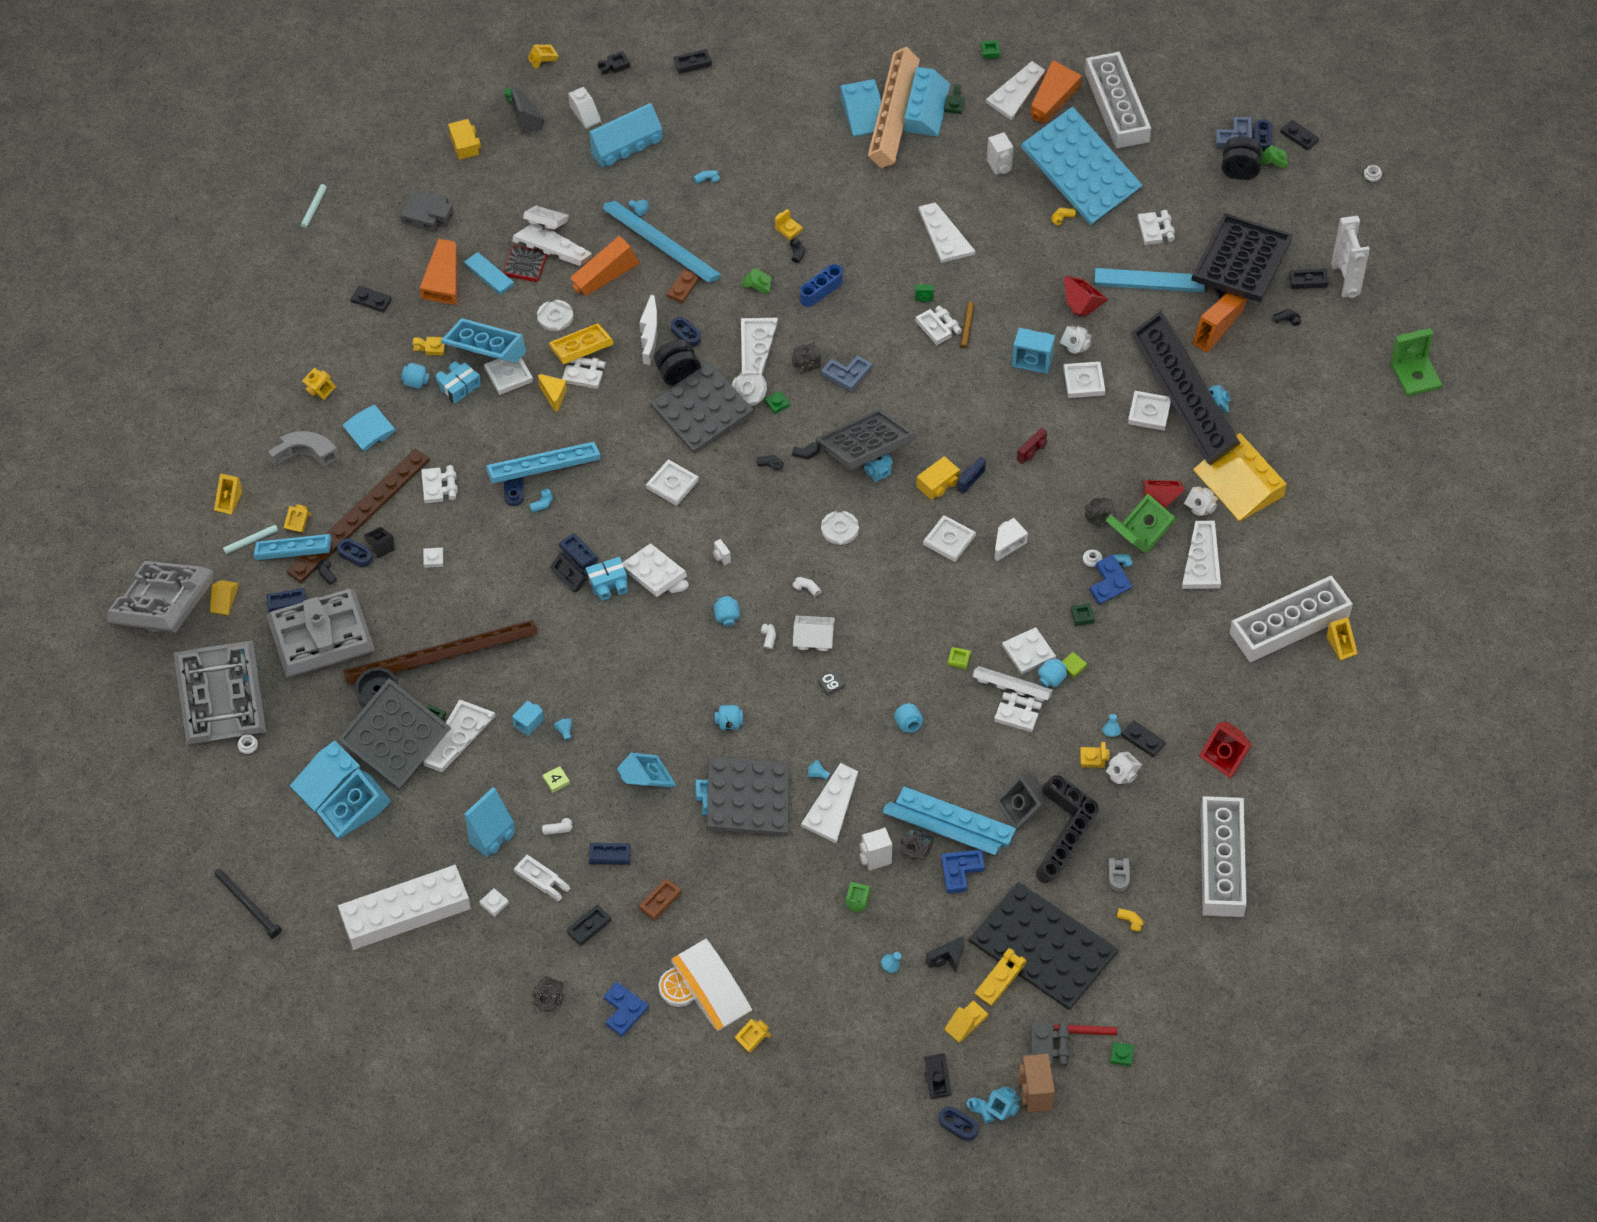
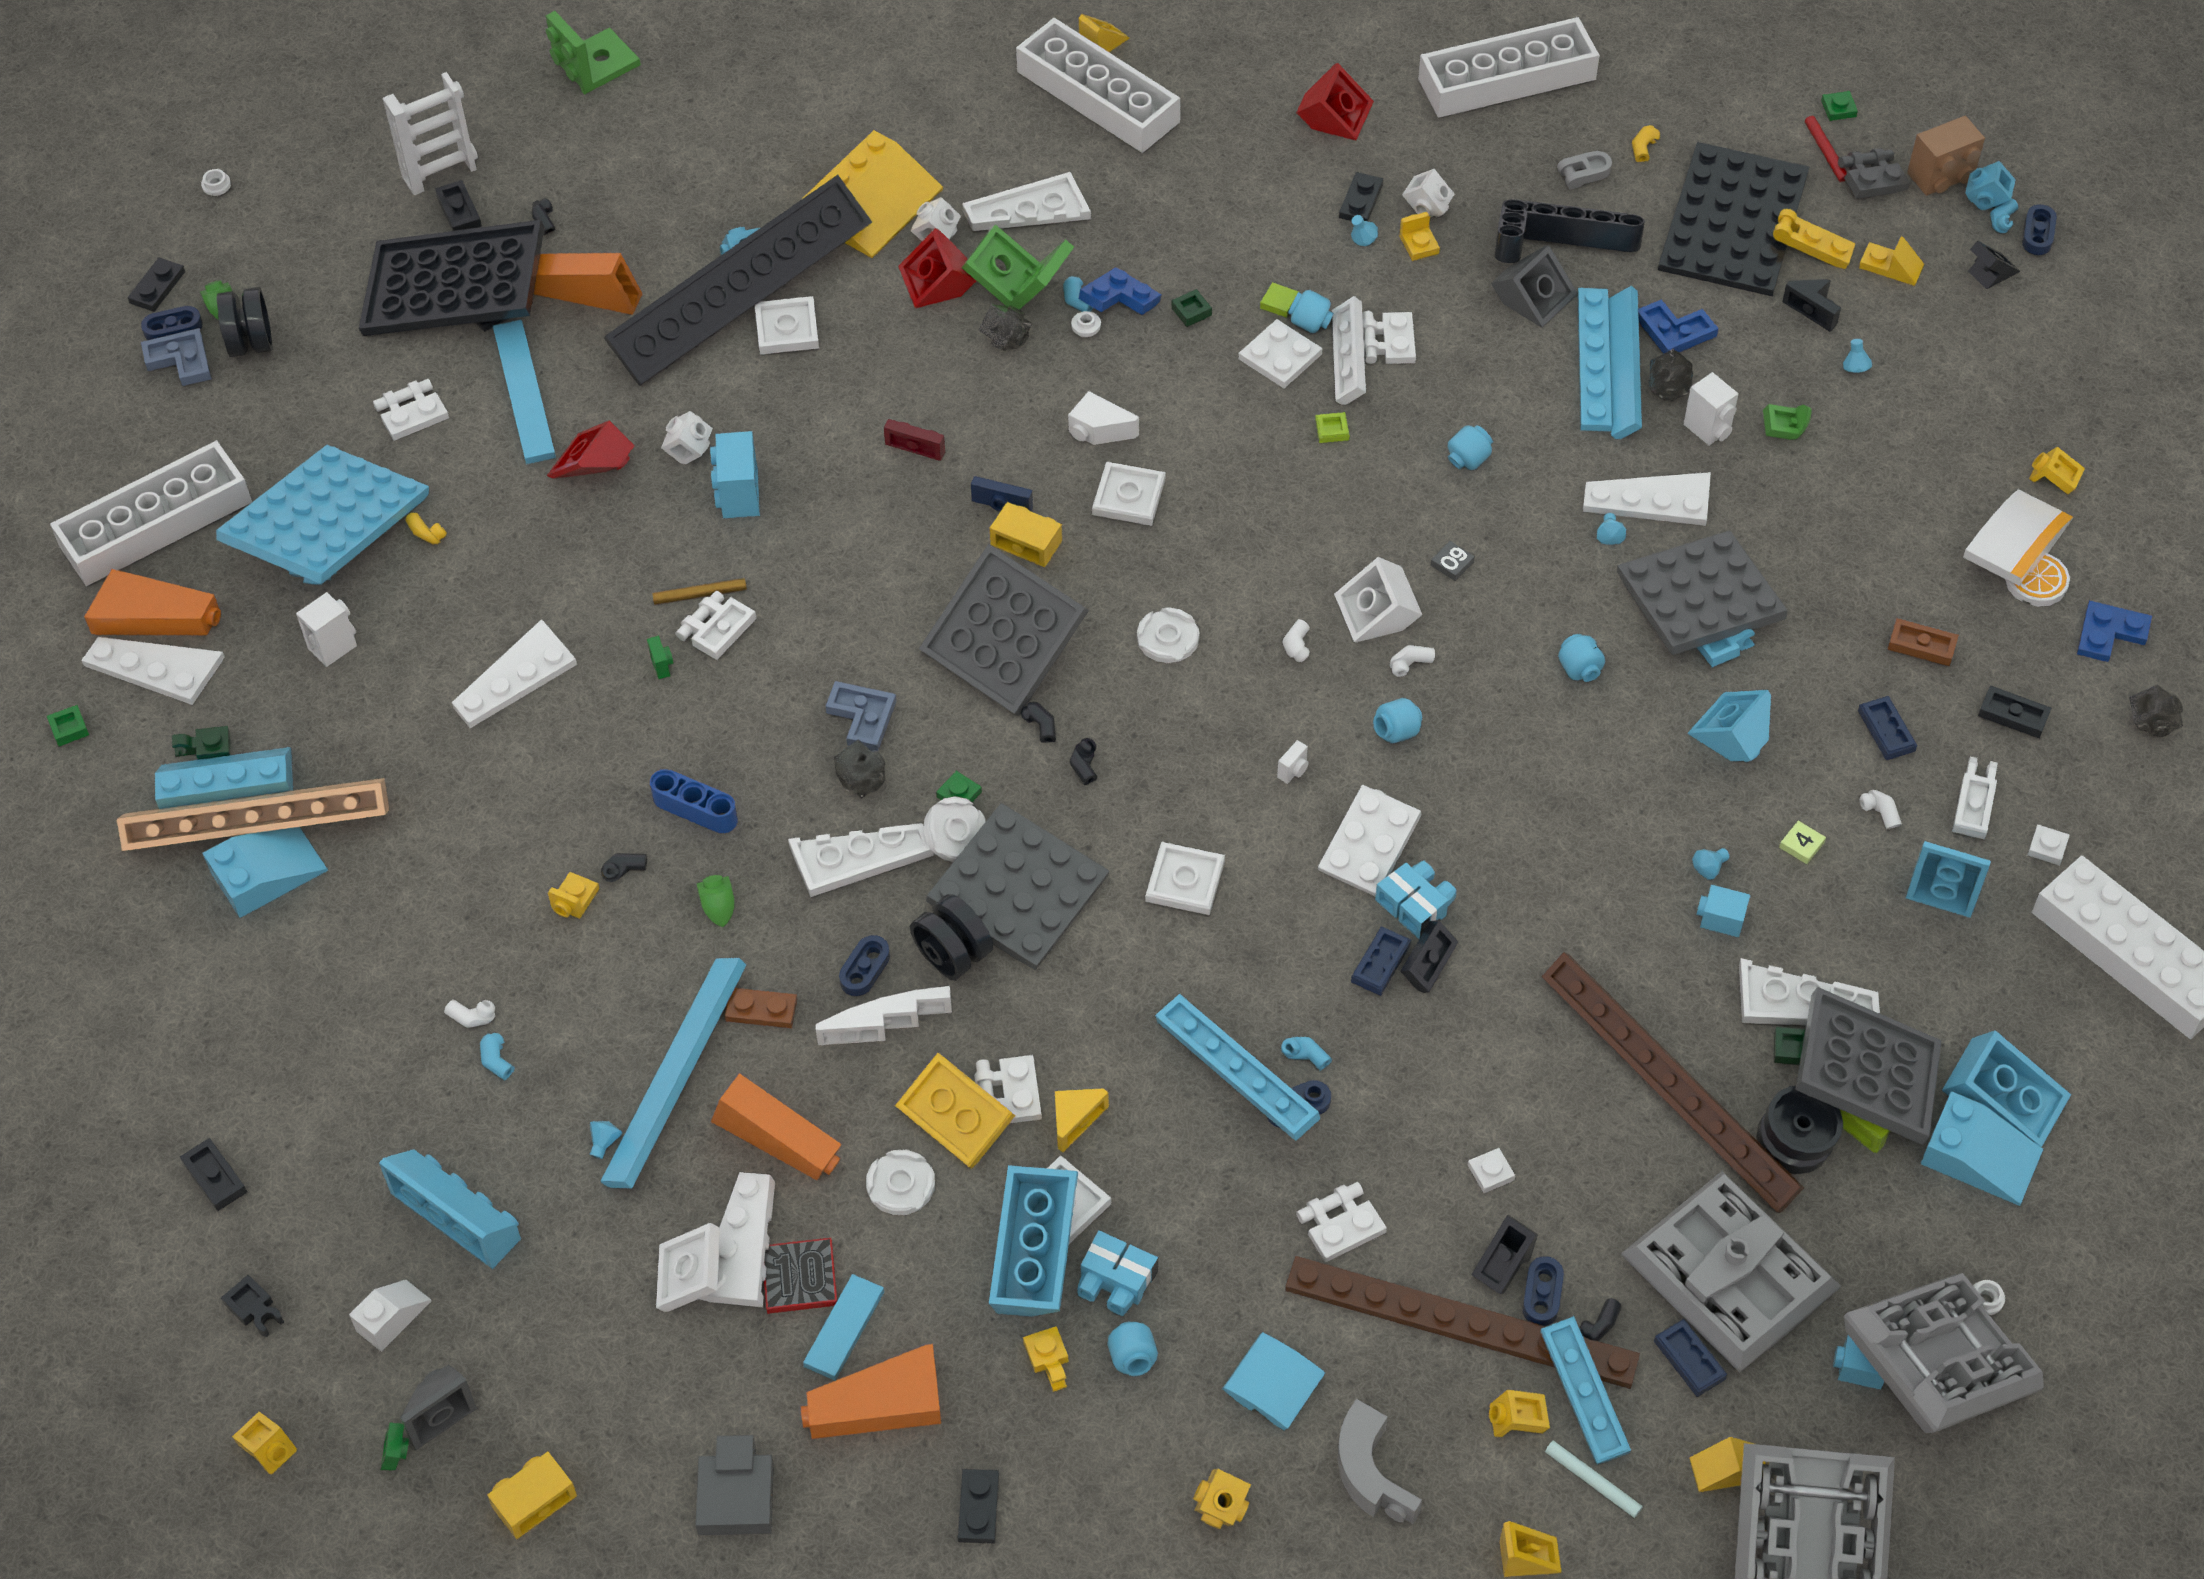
camera: 110 degrees left, 0 degrees up
(734, 172) = (471, 1017): none -> white arm
(1084, 379) = (758, 411): white plate -> none

